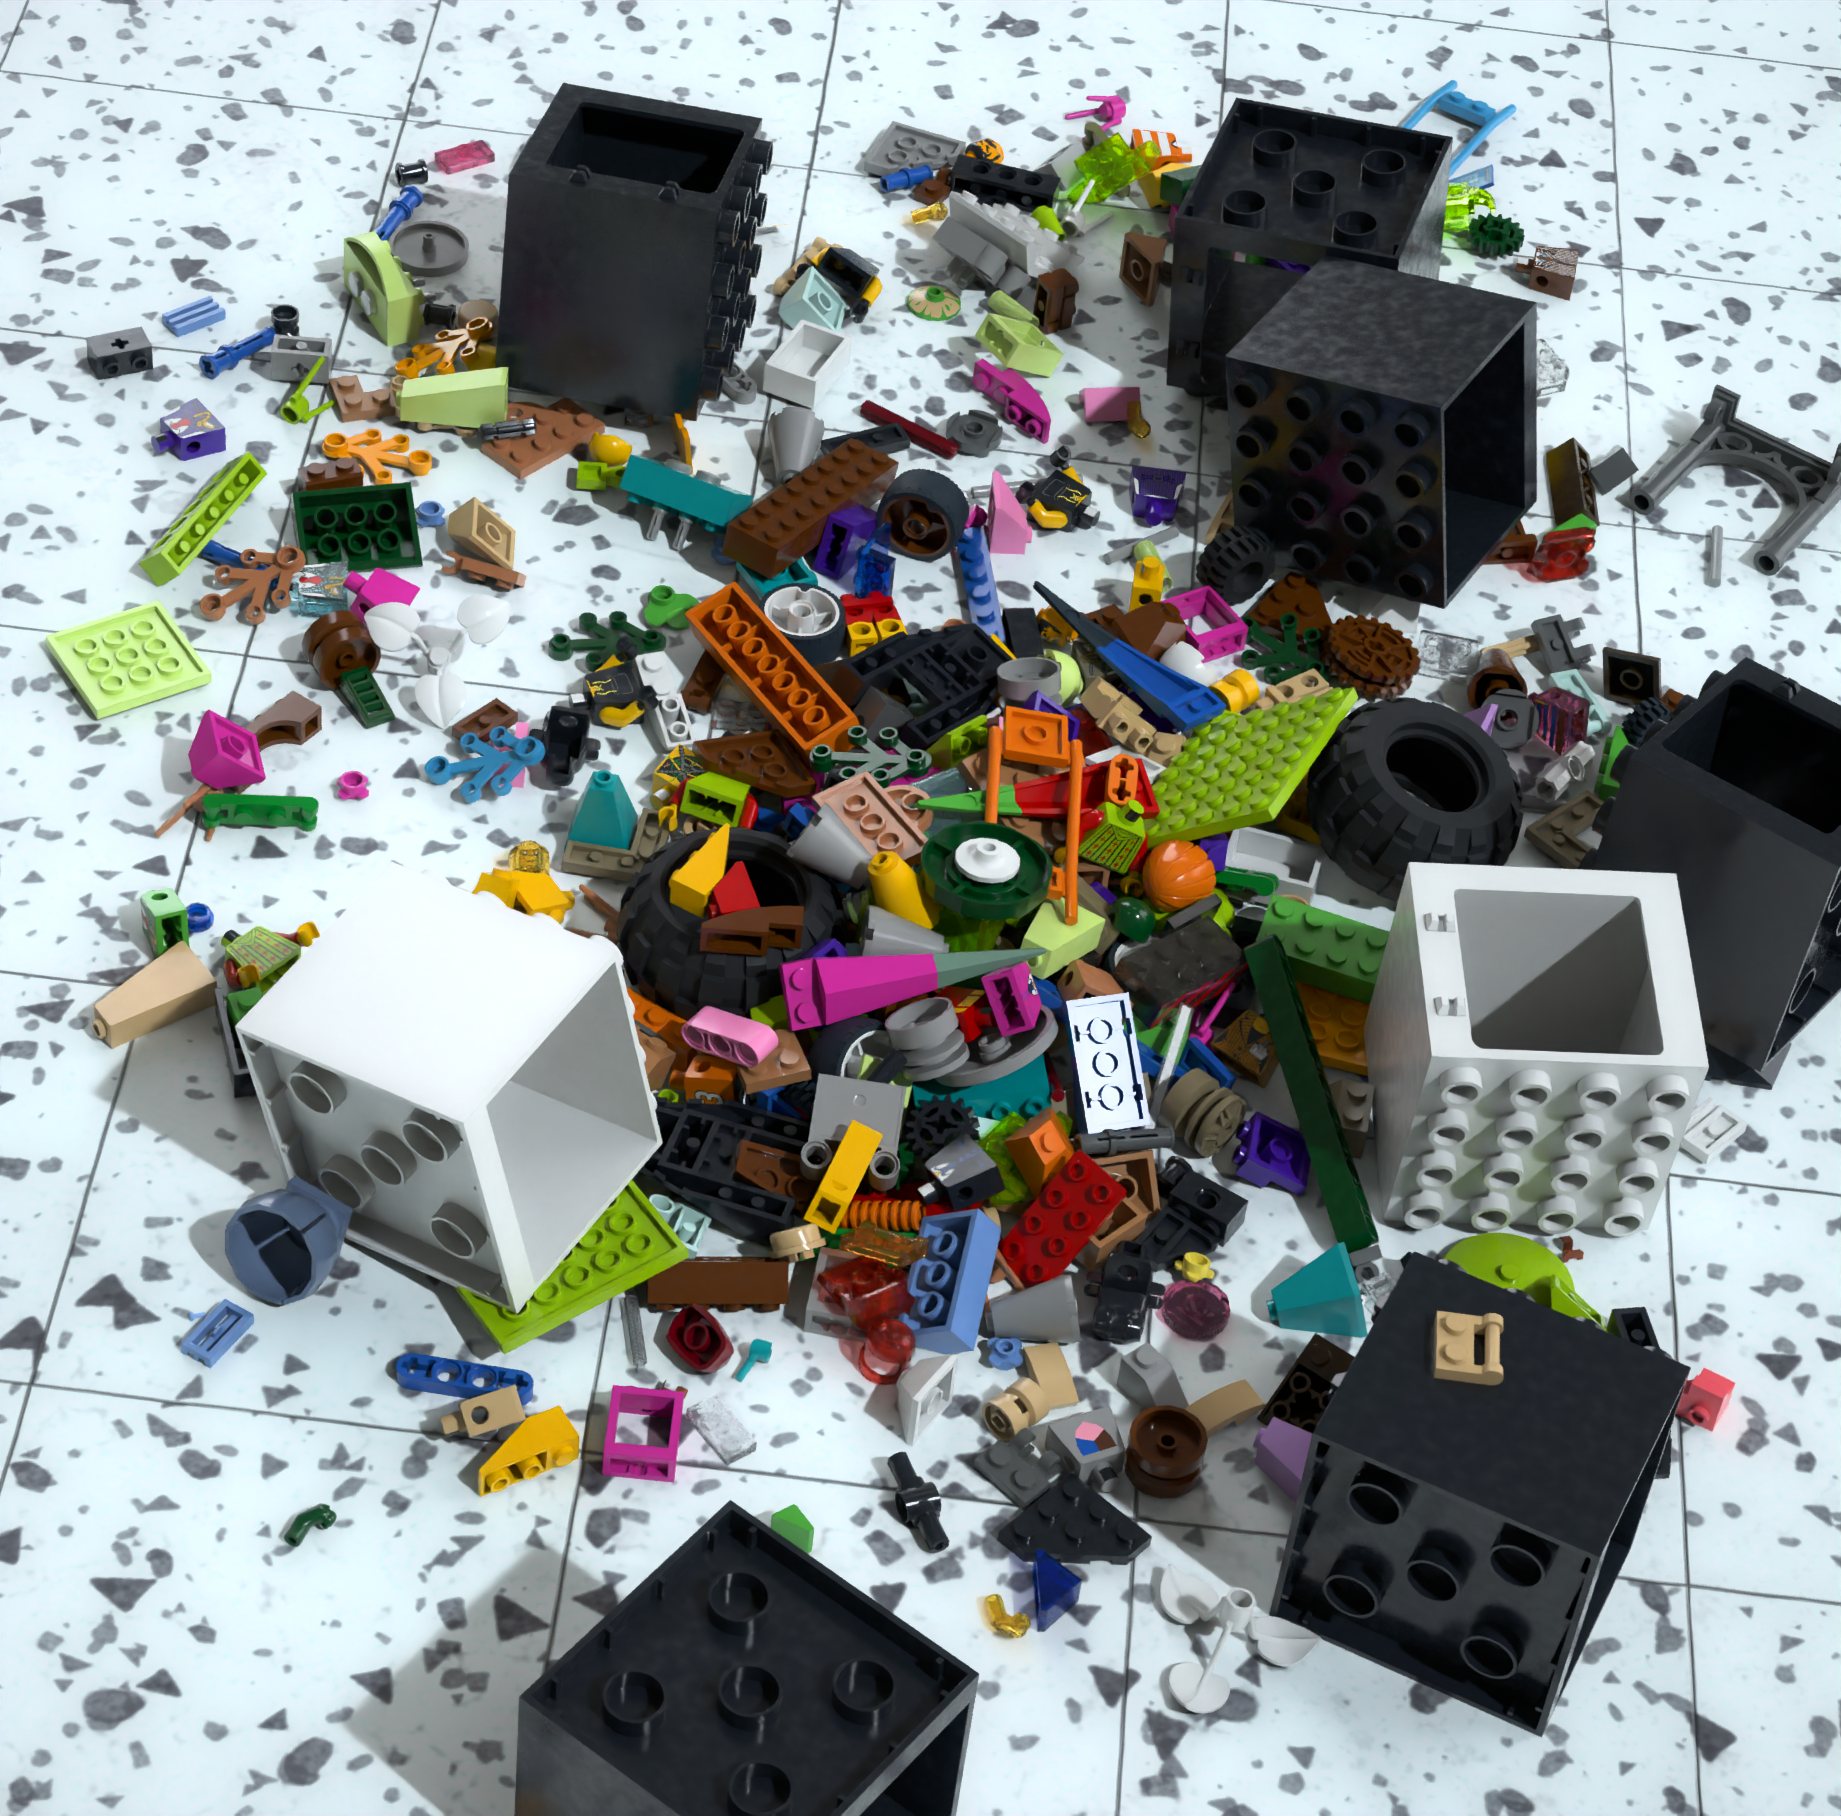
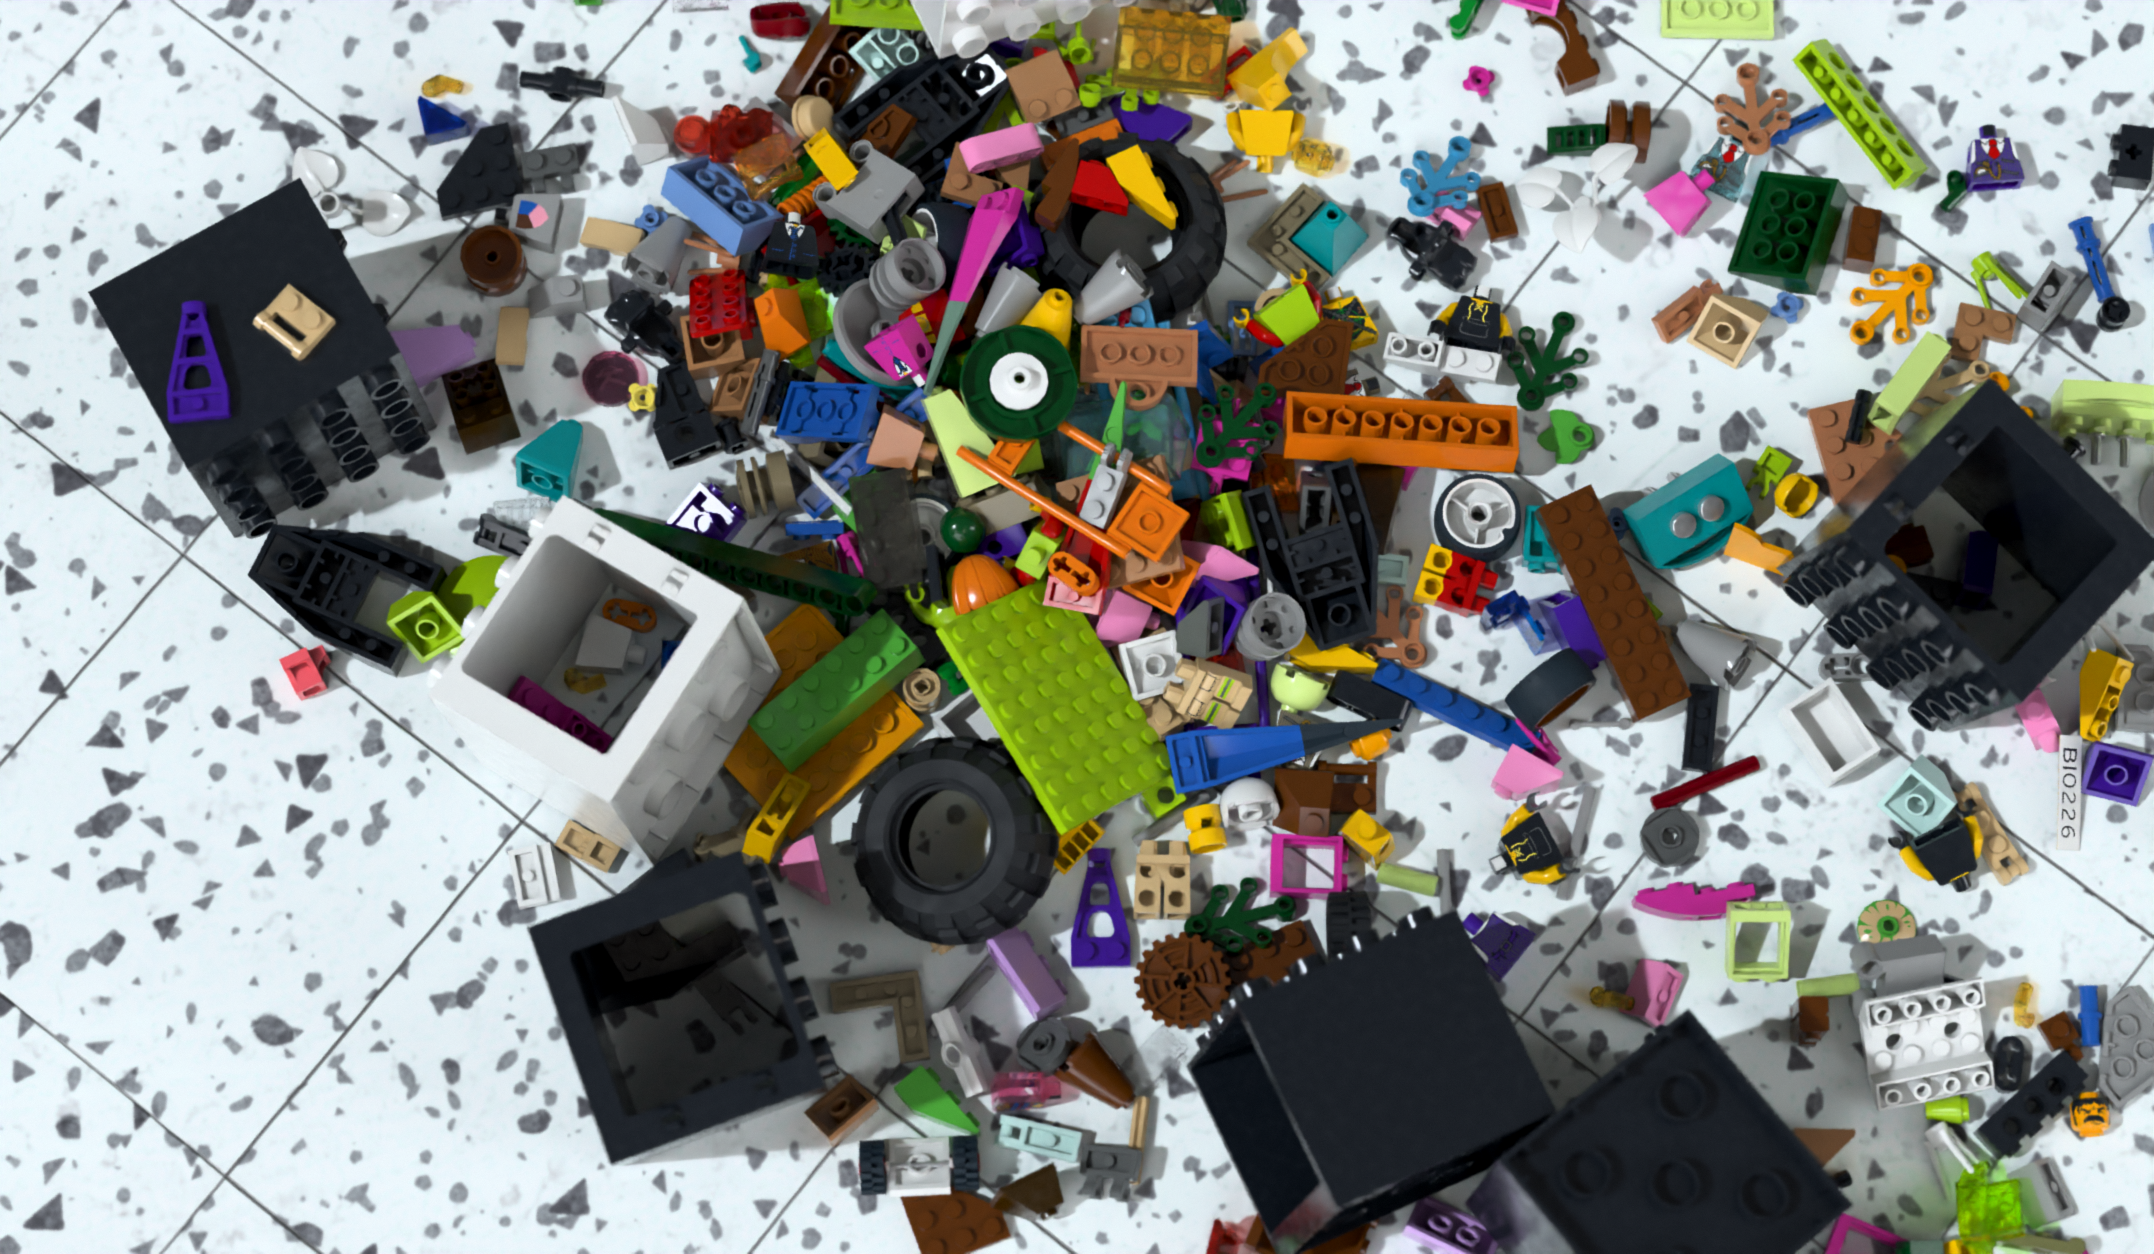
camera: 130 degrees right, 30 degrees up
(232, 449) = (1956, 191): none -> dark green arm
(1017, 1408) = (592, 188): tan wheel -> none
(1027, 779) = (1106, 487): none -> light grey hinge
(1083, 725) = (1202, 629): none -> dark grey slope
(1616, 1380) = (199, 403): none -> dark purple plate

